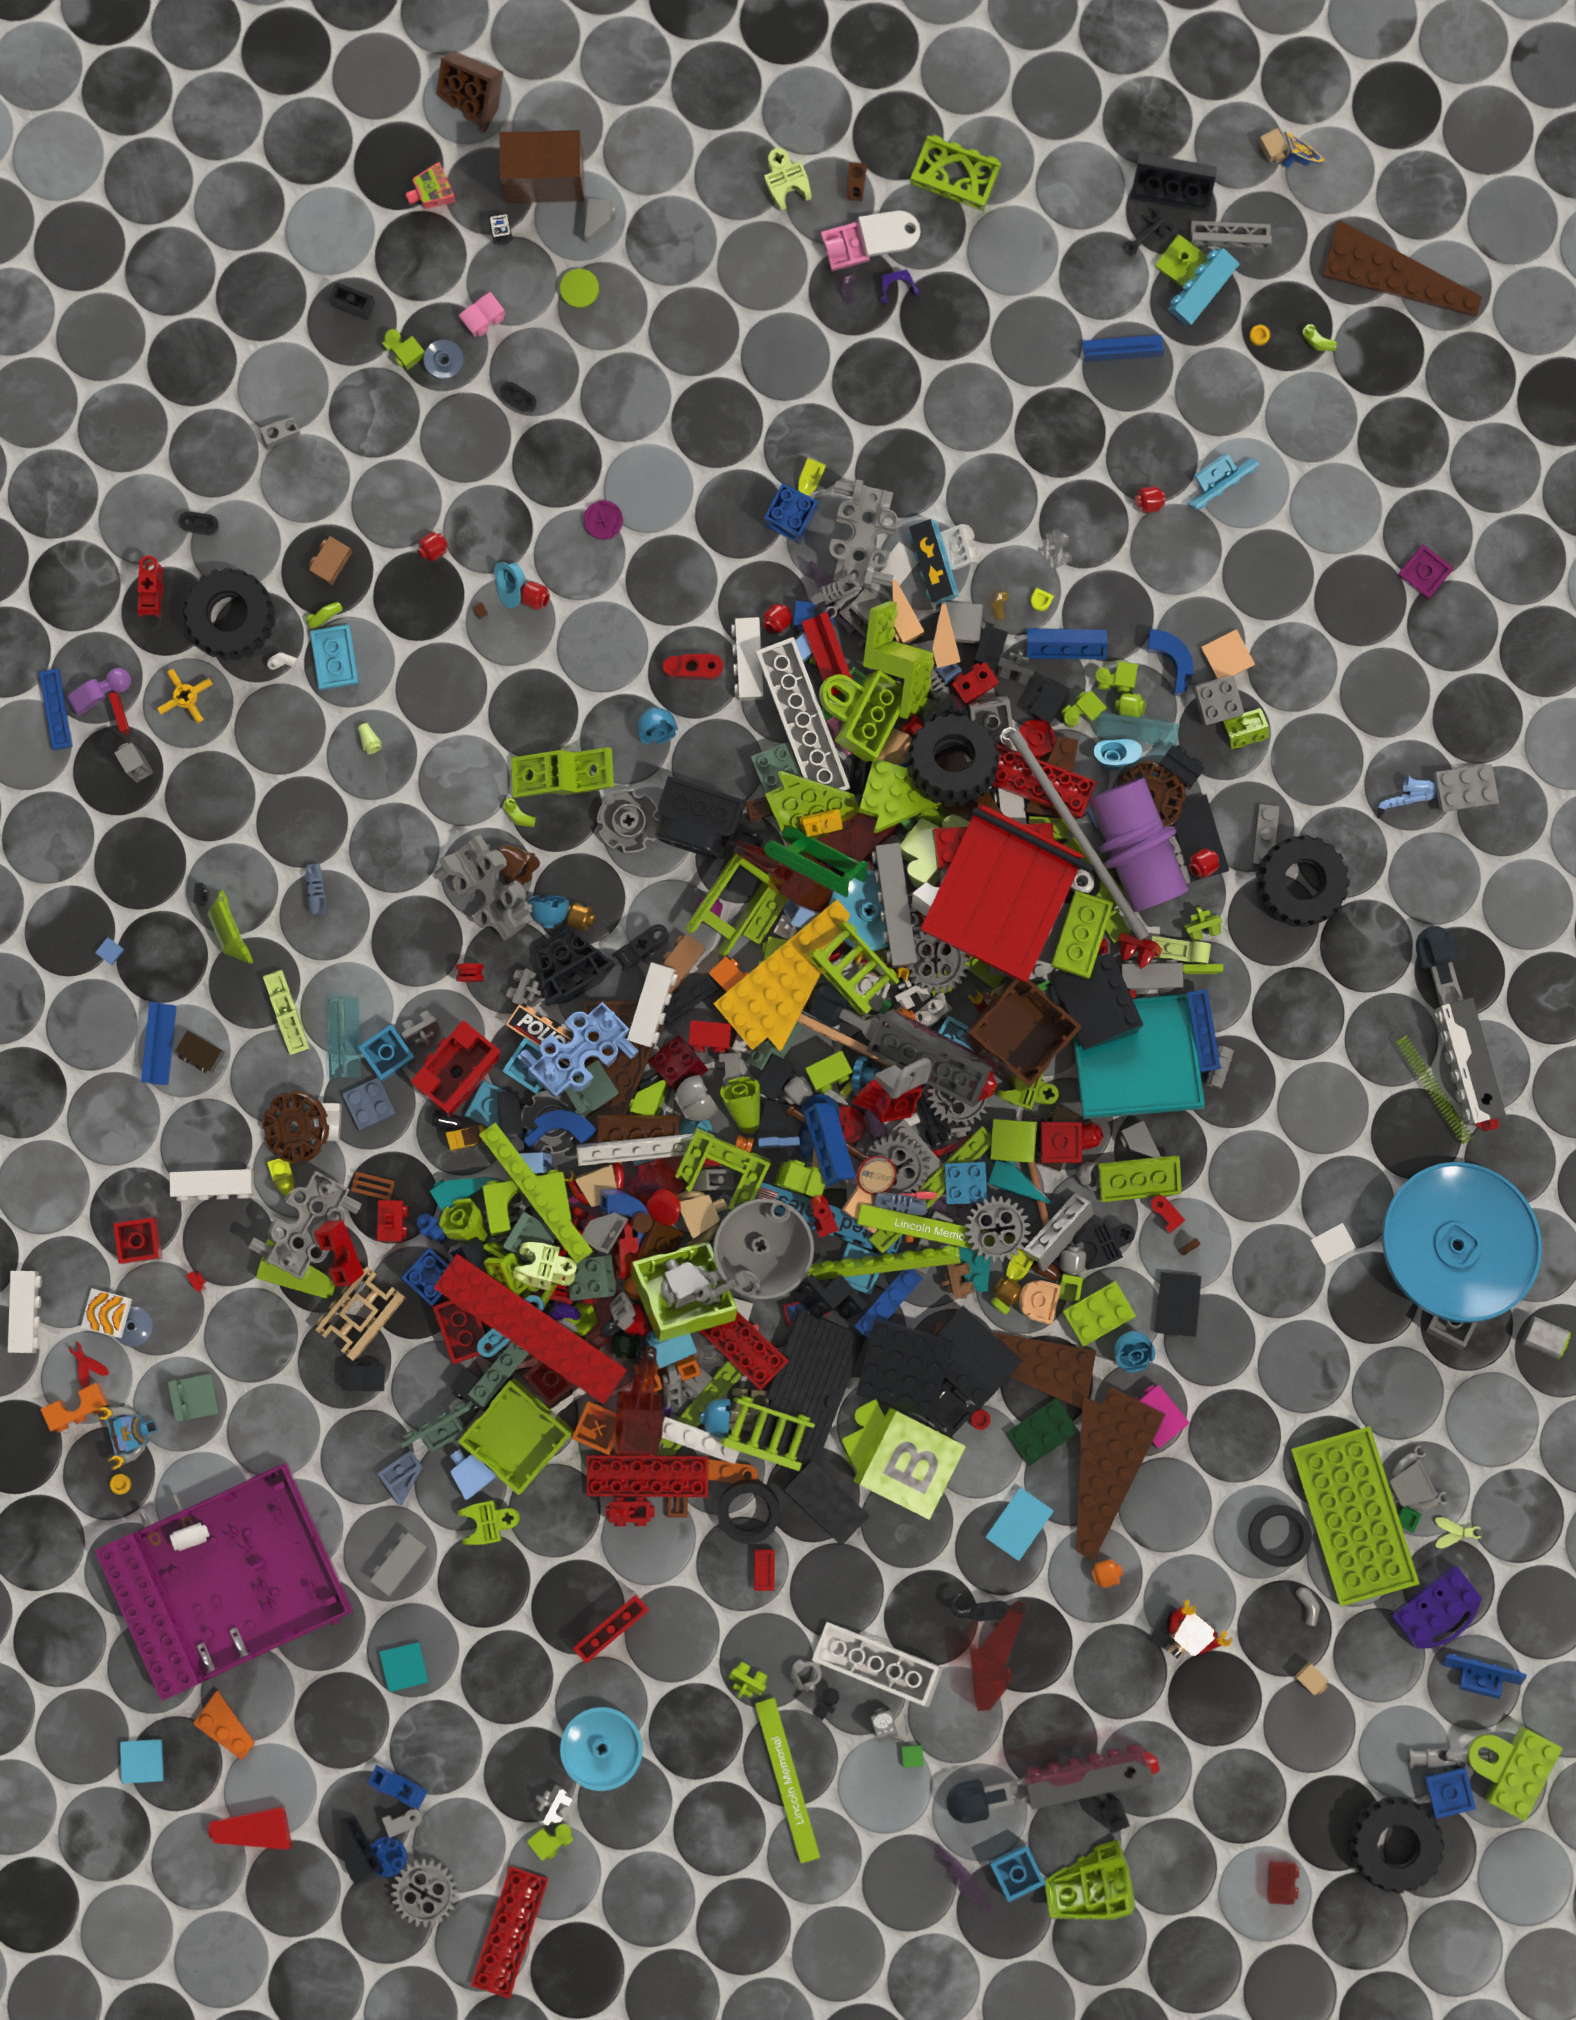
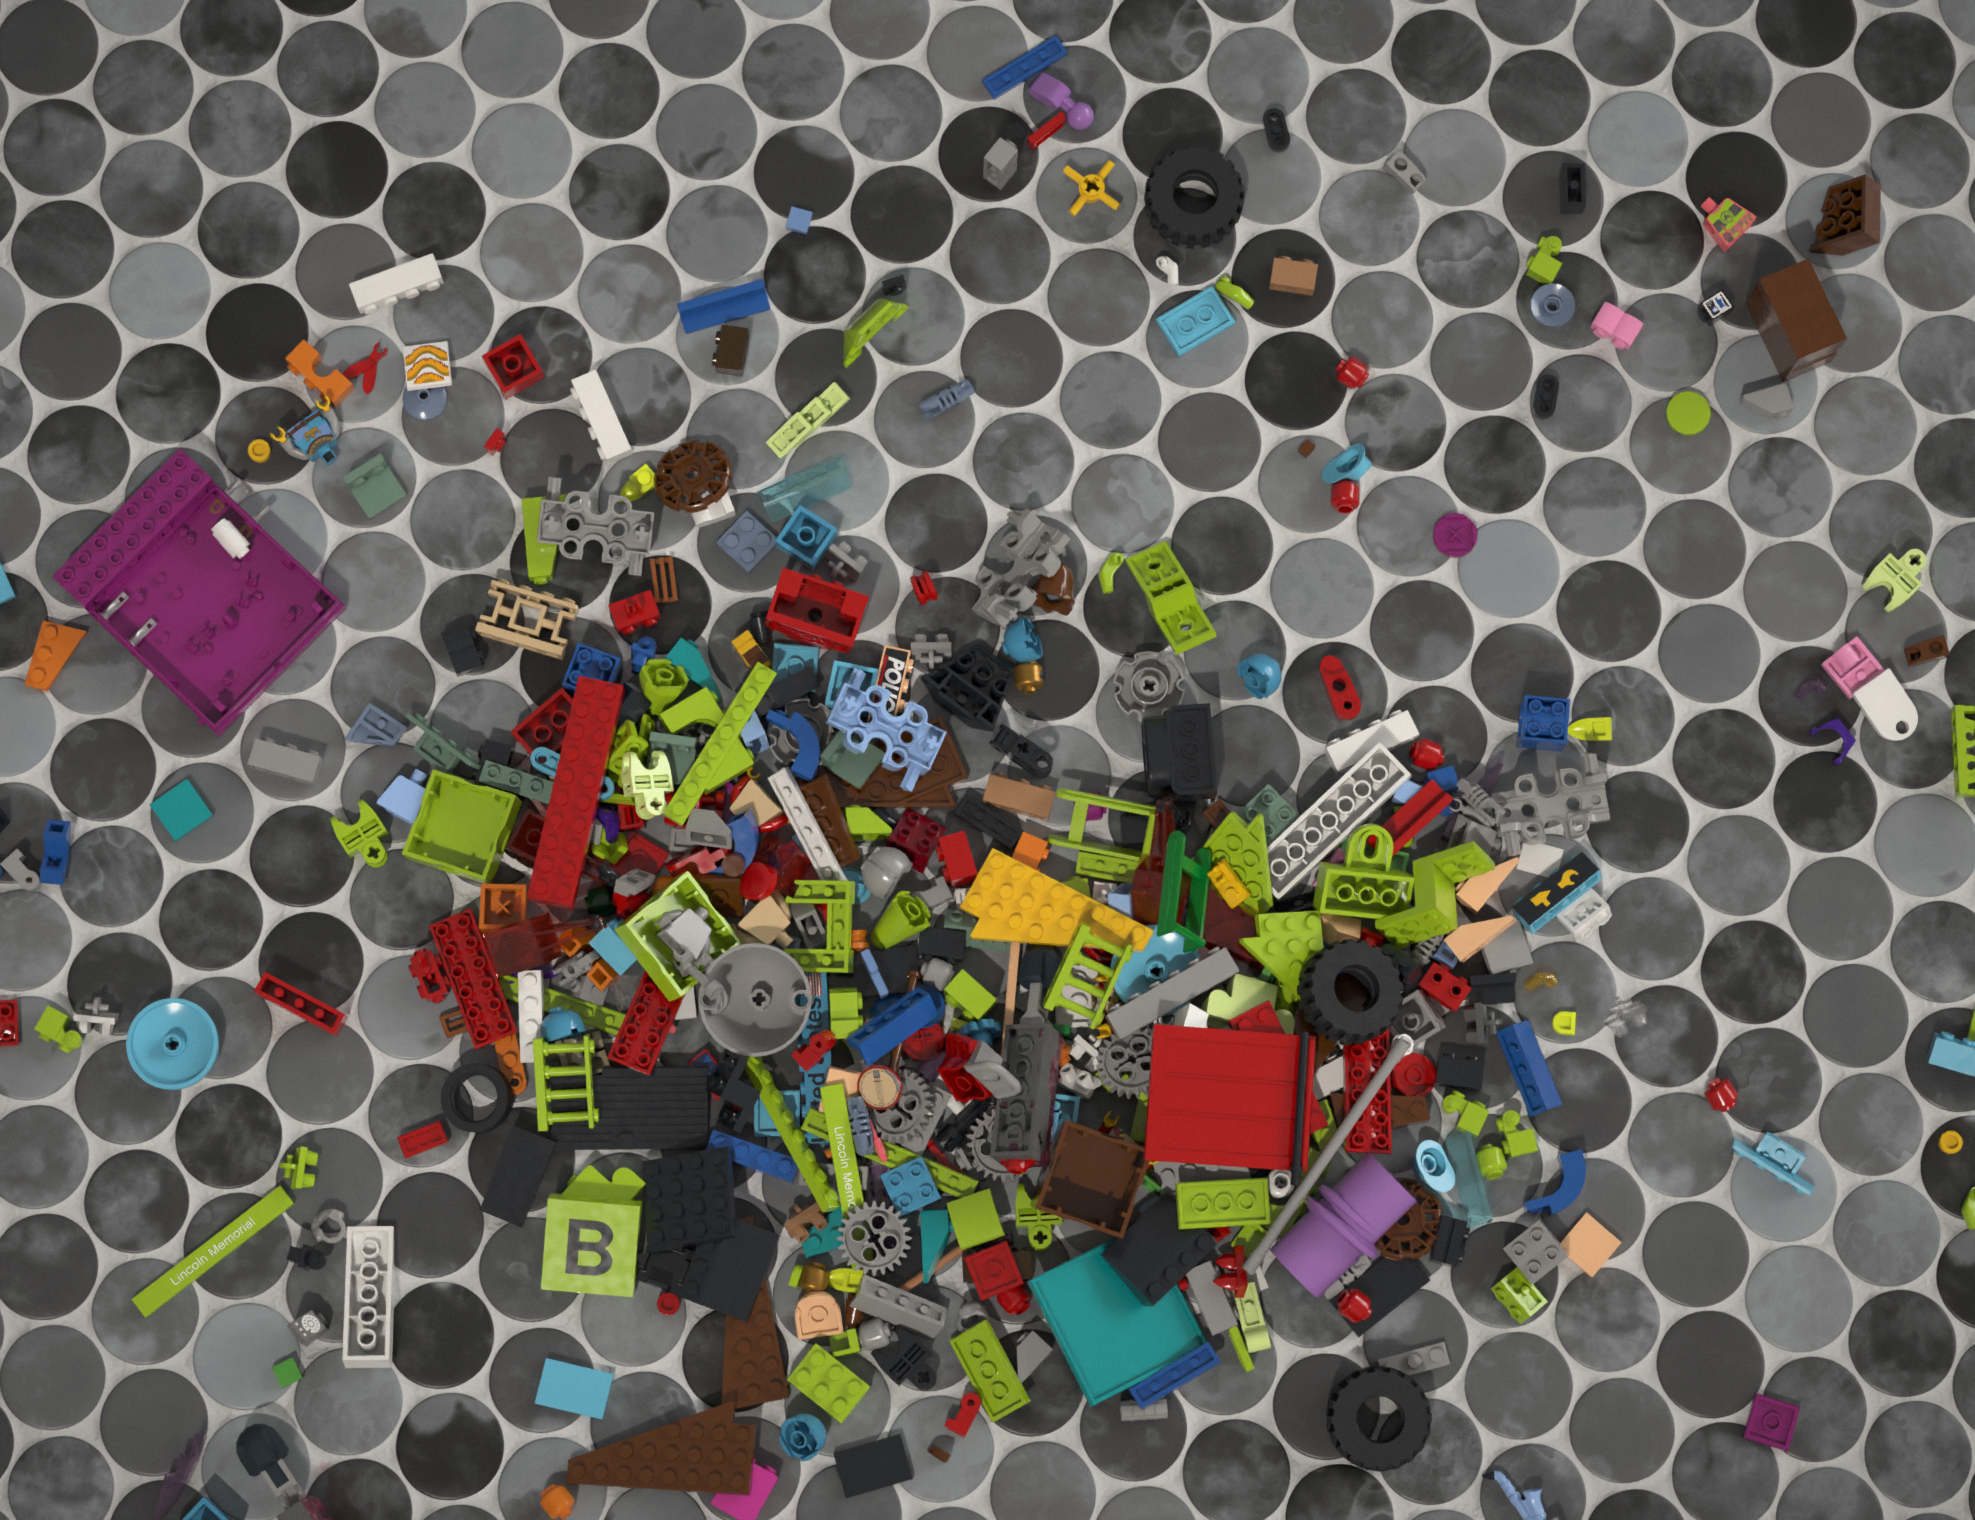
camera: 65 degrees right, 5 degrees down
(150, 587) = (1182, 108): red piece -> none
(346, 1265) = (570, 583): red arch -> none
(369, 739) = (1122, 392): yellowish green cone -> none
(593, 1278) = (656, 840): sand green bracket -> none
(652, 1004) = (965, 785): white brick -> none
(990, 1659) = (417, 1412): clear red slope -> none
(1042, 1432) = (681, 1375): dark green plate -> none
(1122, 348) = (1872, 1002): blue panel -> none
(1211, 923) = (1281, 1324): lime hips -> none

